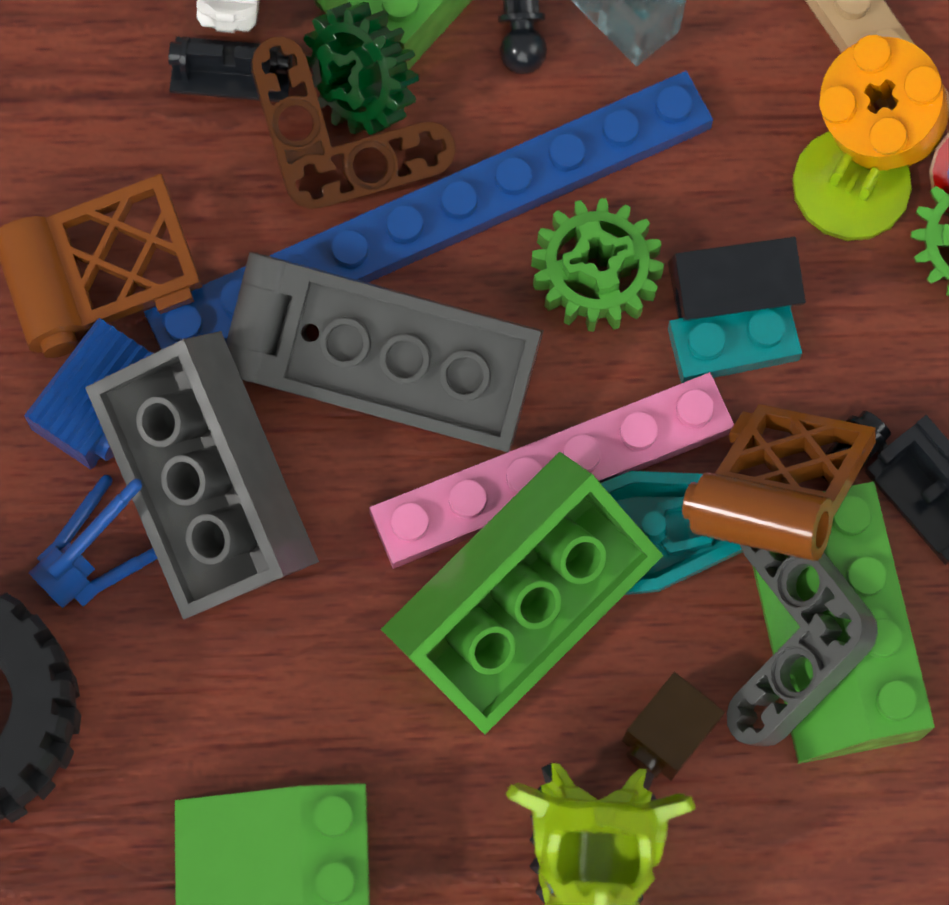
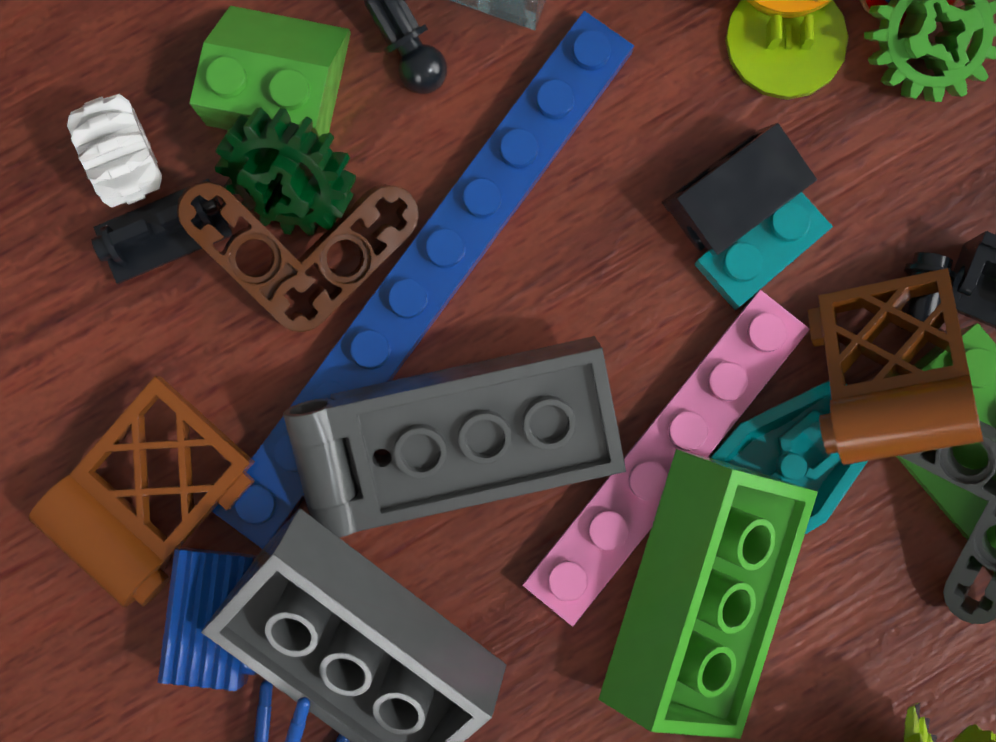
camera: 25 degrees left, 10 degrees up
(602, 287) = (586, 222): bright green gear -> none
(671, 728) = (907, 646): dark brown brick -> none

